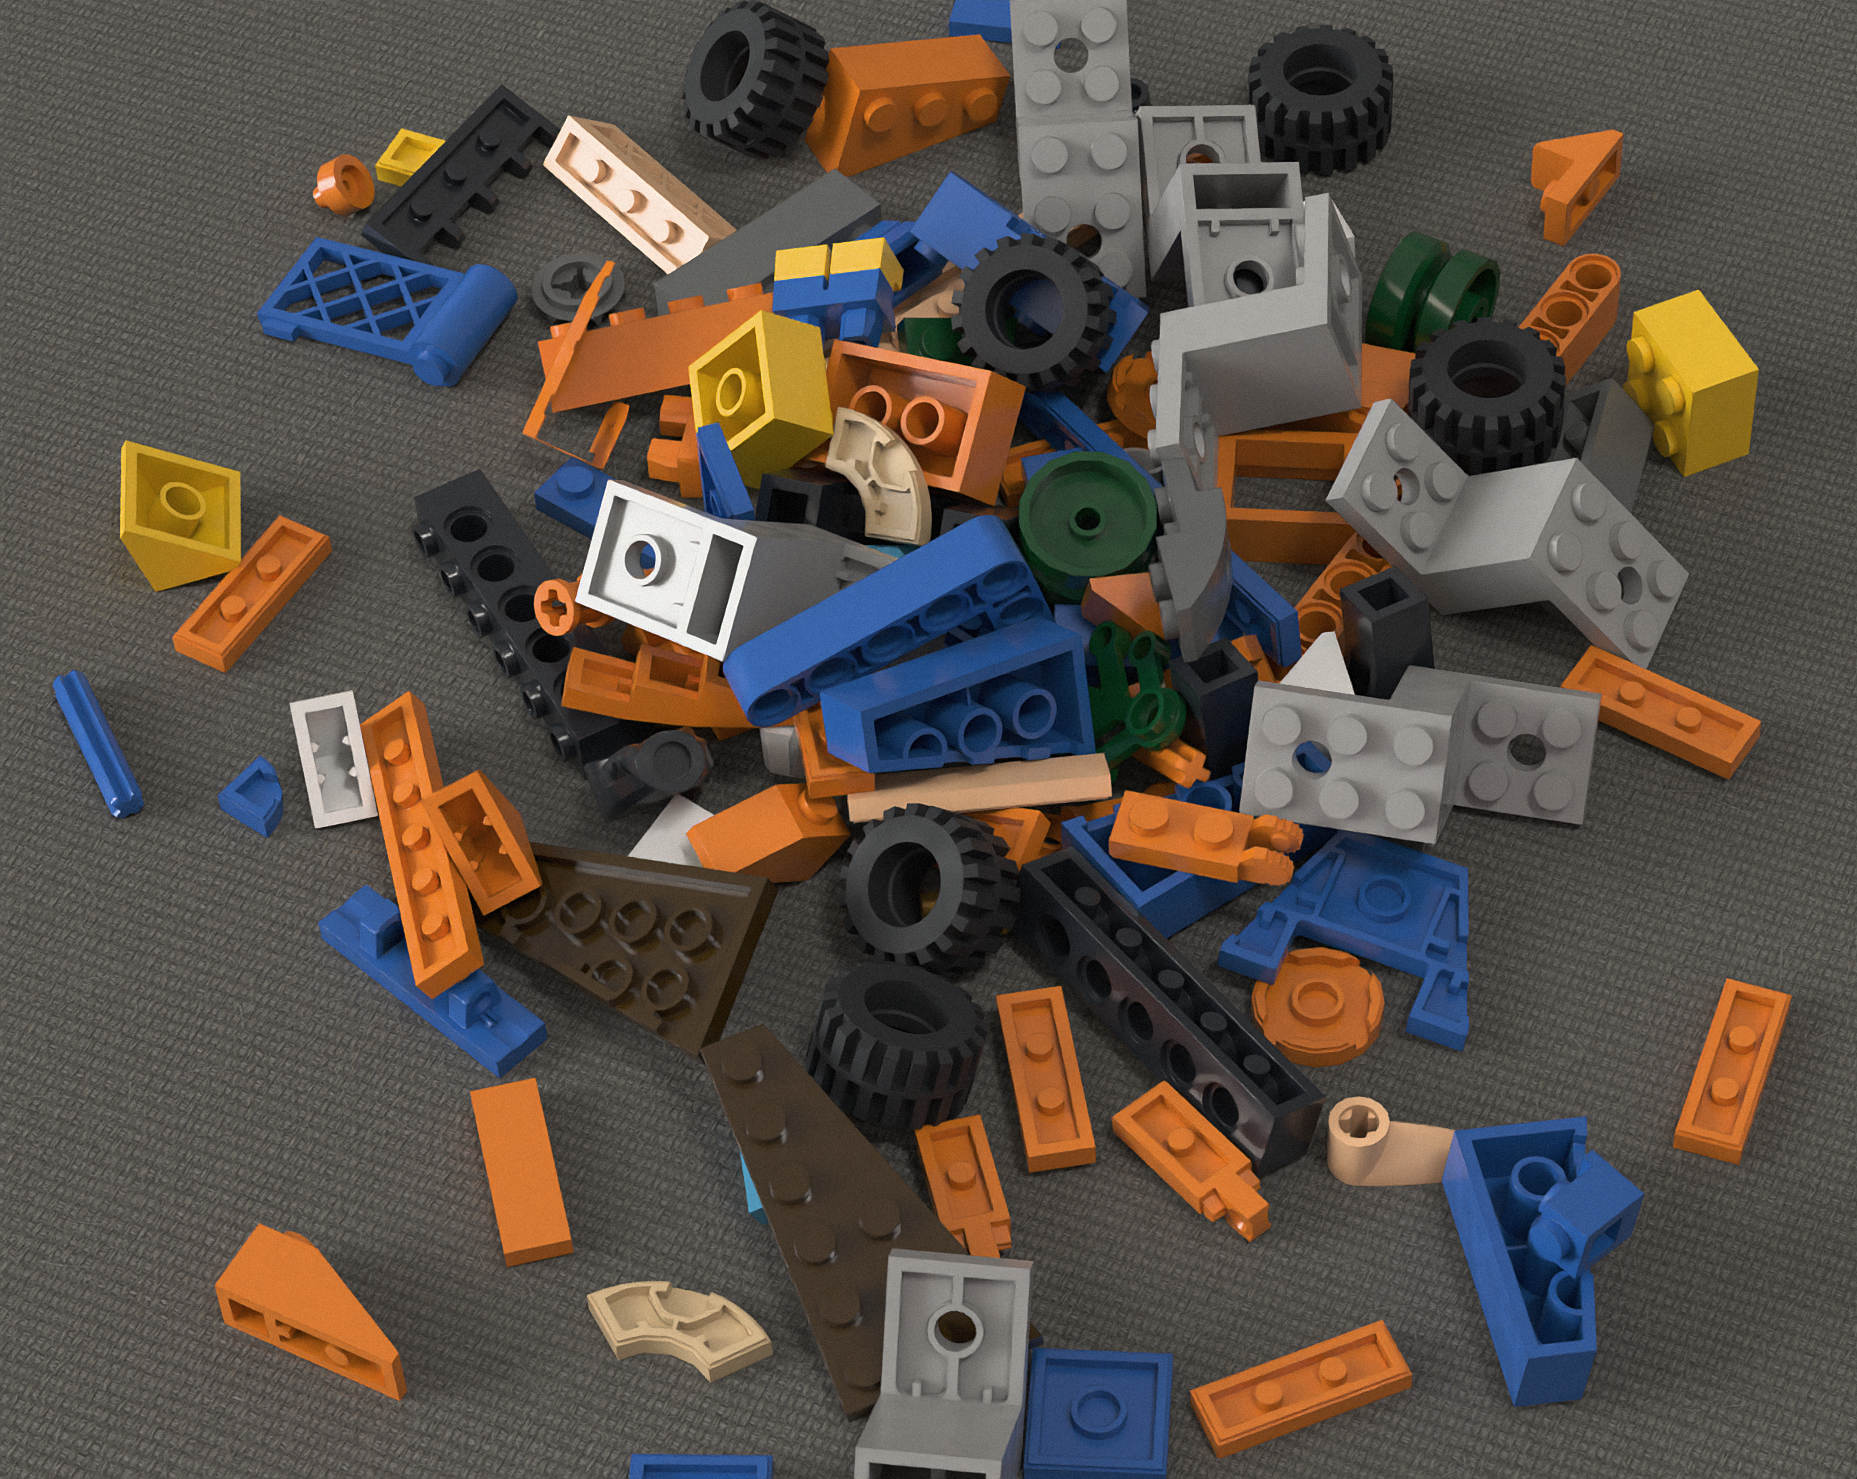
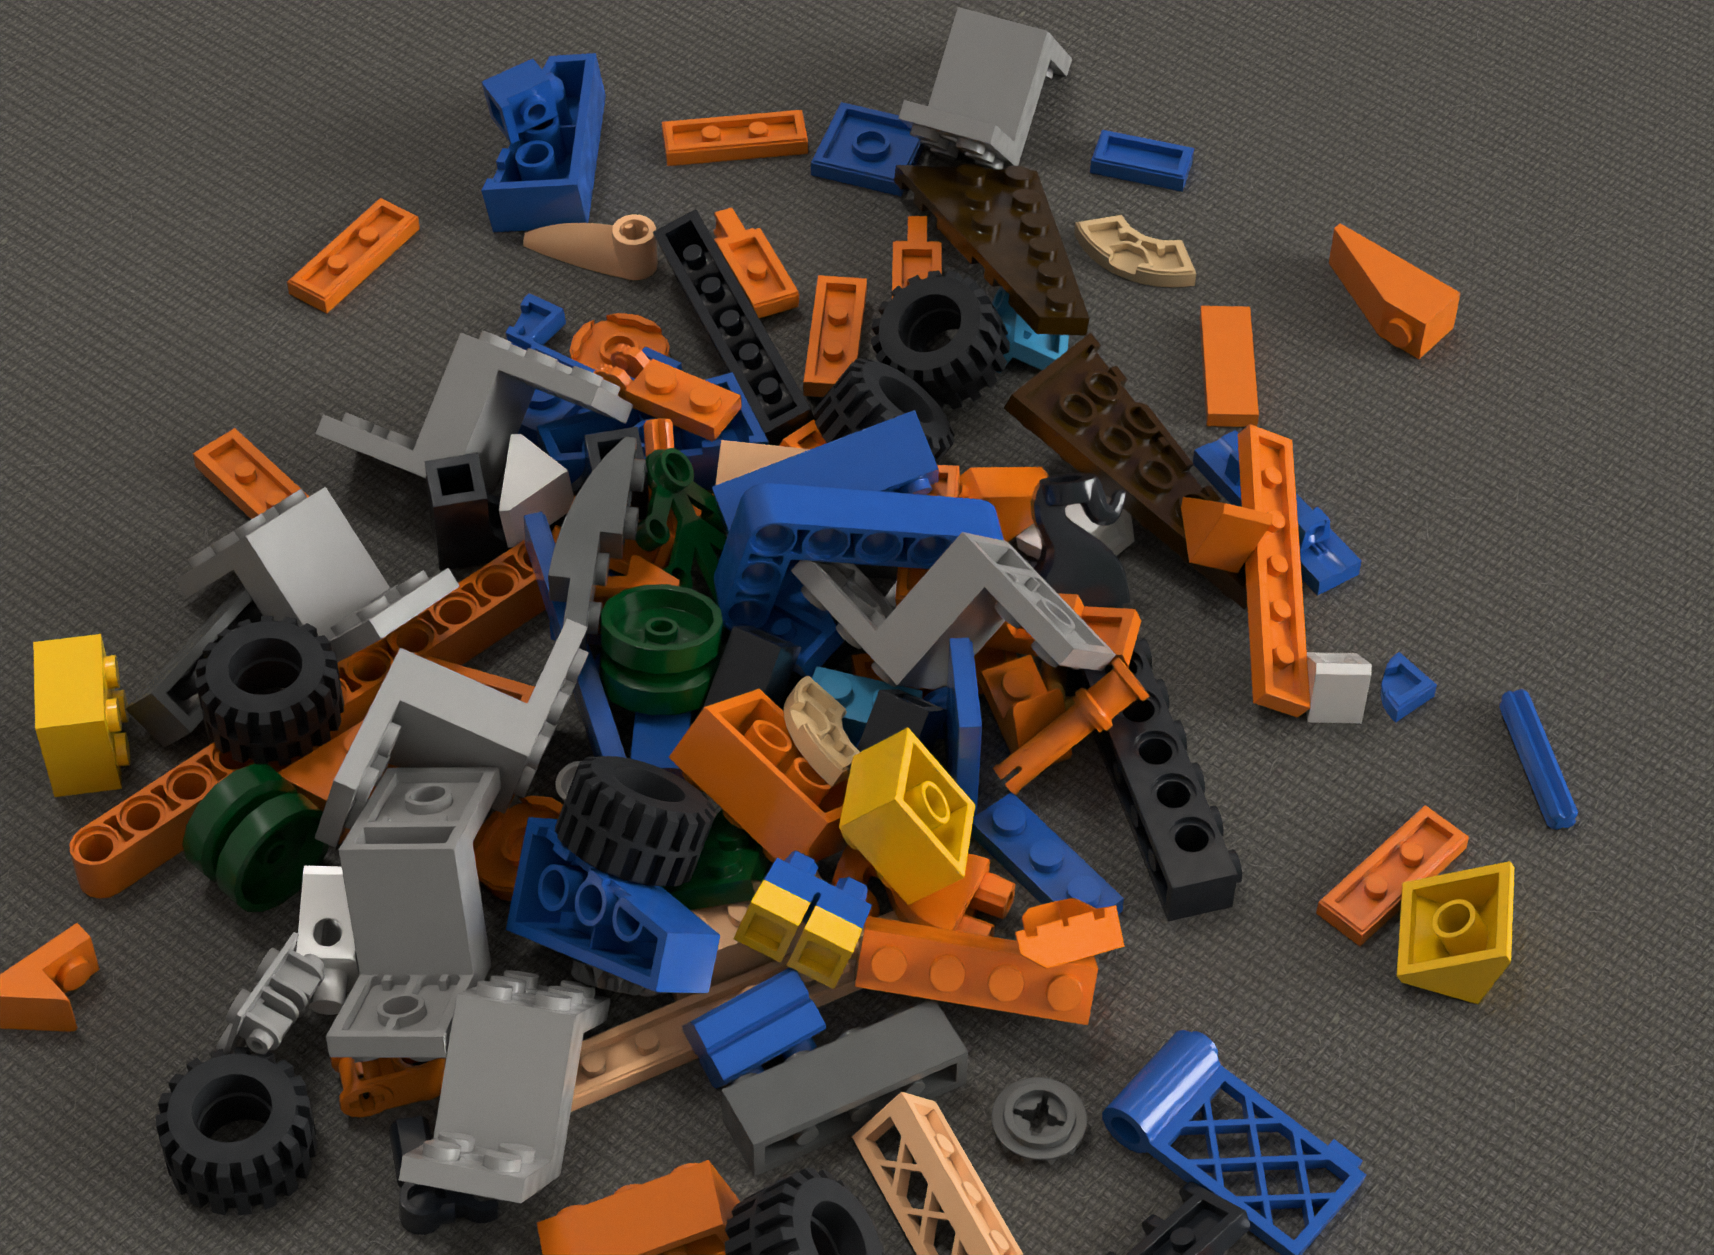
camera: 170 degrees left, 0 degrees up
(1338, 160) = (268, 1011): none -> light grey hinge

